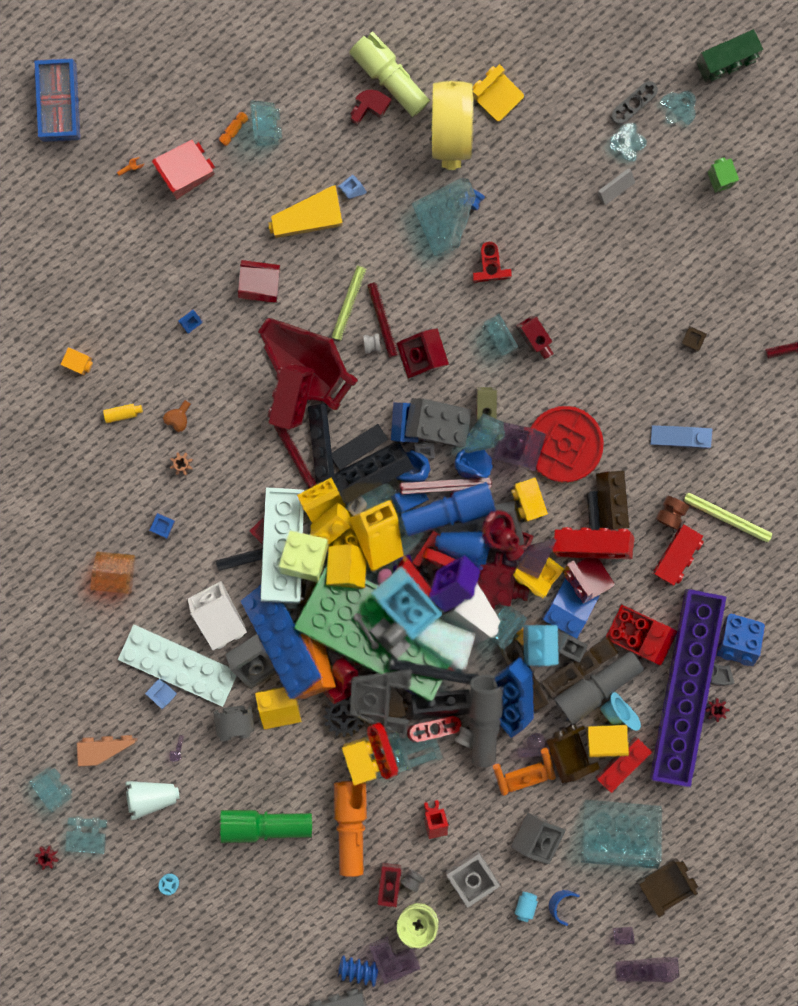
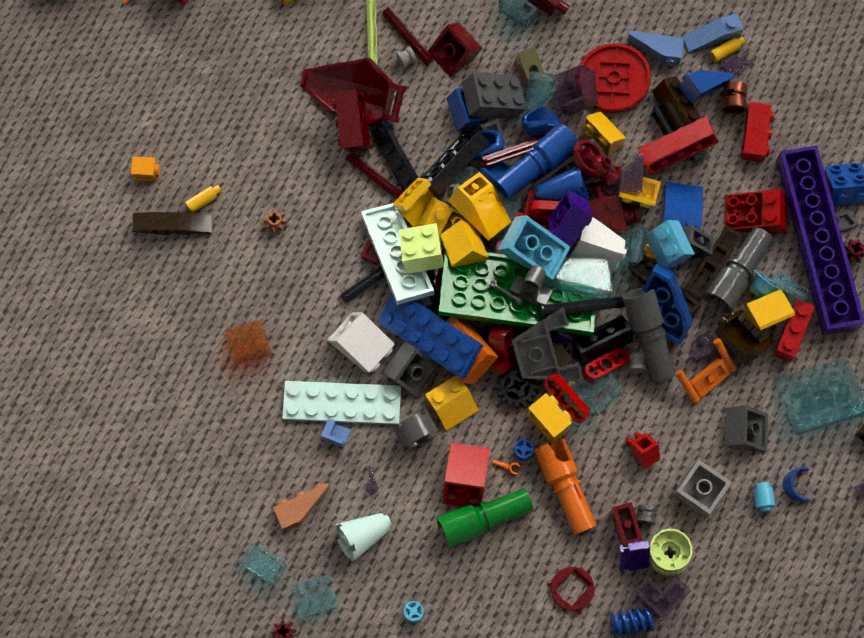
camera: 20 degrees left, 15 degrees down
(83, 427) = (171, 222): none -> dark brown slope
(162, 525) = (278, 282): blue plate -> none
(177, 417) = (255, 184): dark orange rock -> none
(190, 321) = (235, 98): blue slope -> none
(258, 281) = (284, 44): slope -> none
(264, 779) = (465, 475): none -> slope
(306, 785) = (506, 466): none -> orange hand
(325, 779) = (524, 446): none -> blue wheel
(325, 932) = (584, 599): none -> dark red piece
(359, 446) = (431, 148): black tile -> none
(386, 915) = (634, 556): none -> dark purple plate
(588, 578) = (685, 179): dark red bracket -> none
(625, 432) = (660, 47): none -> medium blue slope
(638, 723) = (790, 287): none -> clear light blue tile
(643, 490) = (703, 83): none -> blue slope
(688, 457) = (726, 49): none -> yellow cylinder
(688, 475) = (734, 64): none -> clear purple plate
(727, 517) = (787, 86): yellowish green axle -> none

